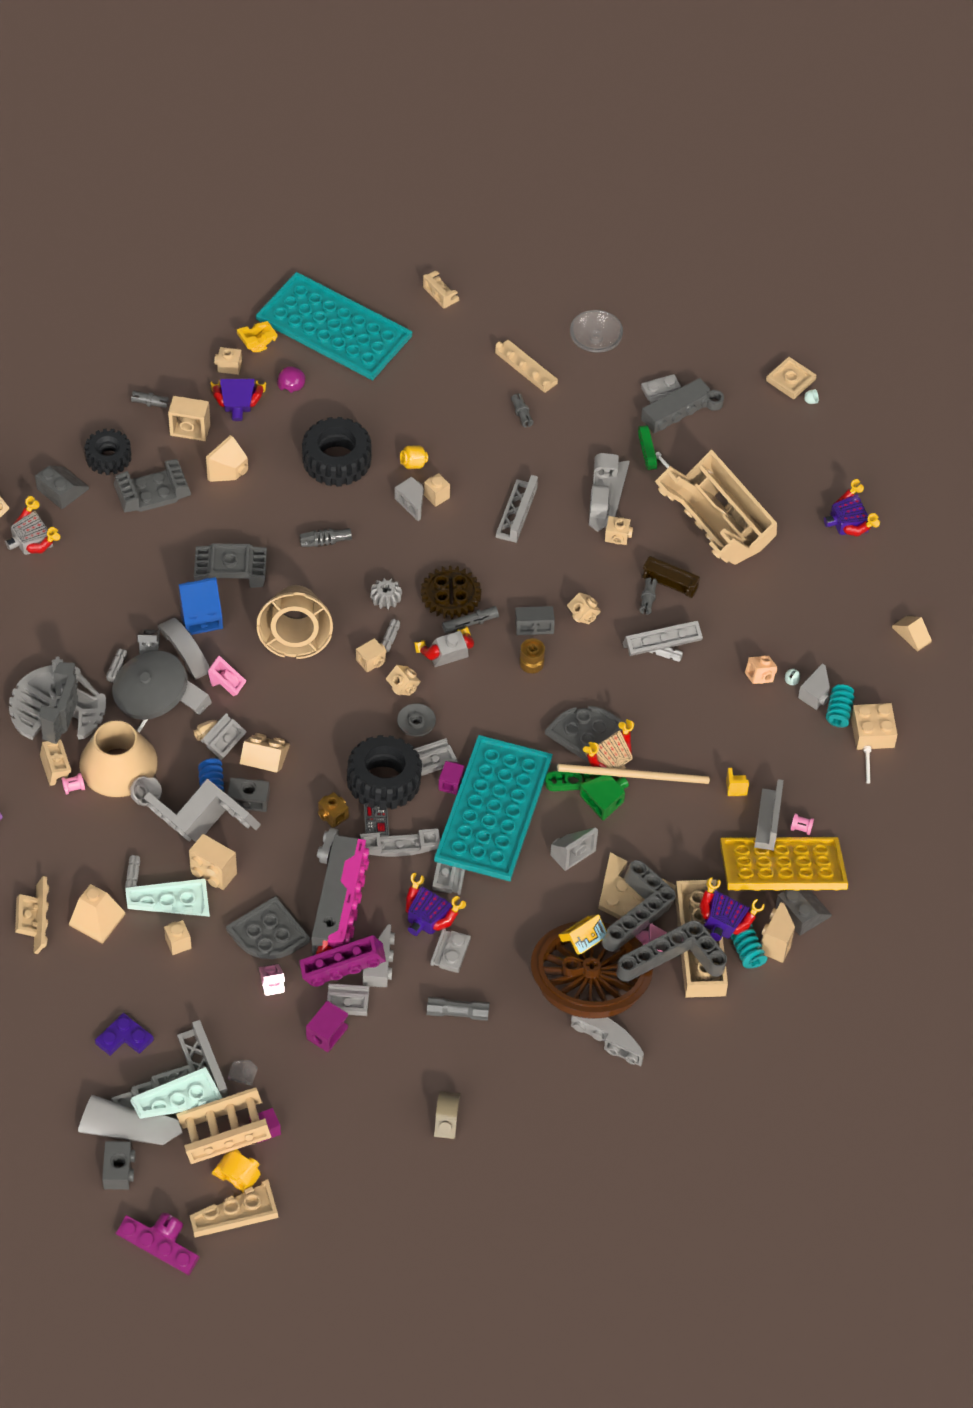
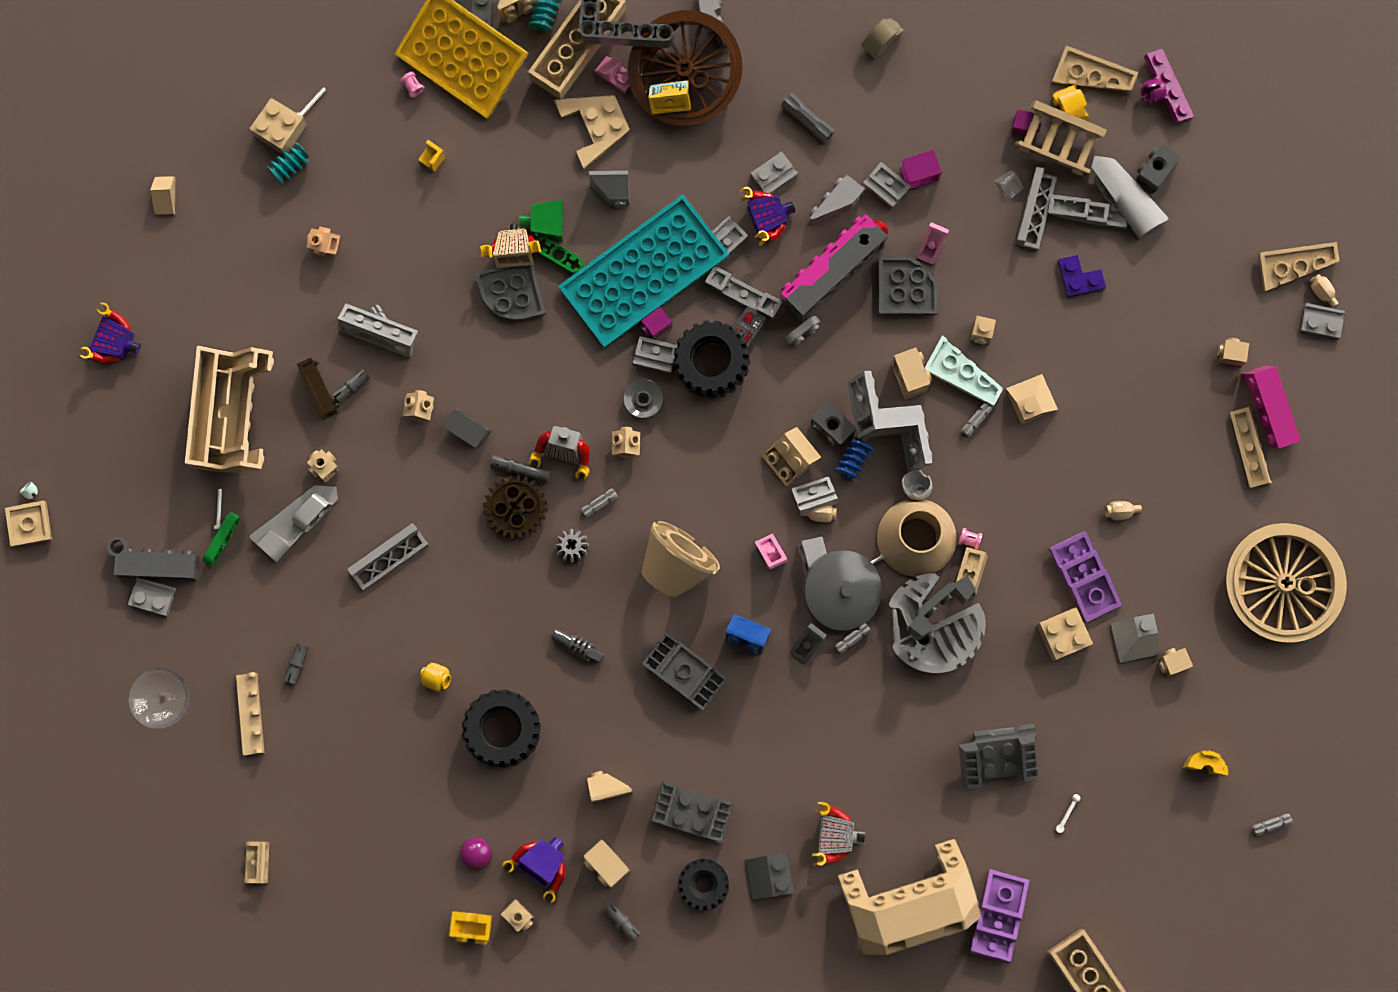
camera: 140 degrees left, 25 degrees up
(32, 915) = (1084, 433): tan bracket -> none
(177, 1095) = (1071, 183): light aqua wing -> none
(186, 647) = (782, 617): light grey slope -> none
(333, 809) = (773, 353): pearl gold brick -> none
(334, 326) = (388, 890): teal plate -> none
(342, 961) = (874, 204): magenta brick -> none
(371, 655) = (631, 490): tan brick -> none
(410, 496) = (470, 633): light grey slope -> none
(436, 489) = (443, 625): tan brick -> none
(532, 655) = (499, 390): pearl gold wheel -> none
(633, 773) = (511, 216): tan piece -> none
(657, 902) = (606, 88): dark grey beam -> none
(723, 914) = (549, 27): torso -> none
(768, 817) = (434, 103): light grey fence -> none
(795, 679) = (301, 227): light aqua hinge -> none
(816, 688) = (291, 195): light grey slope -> none

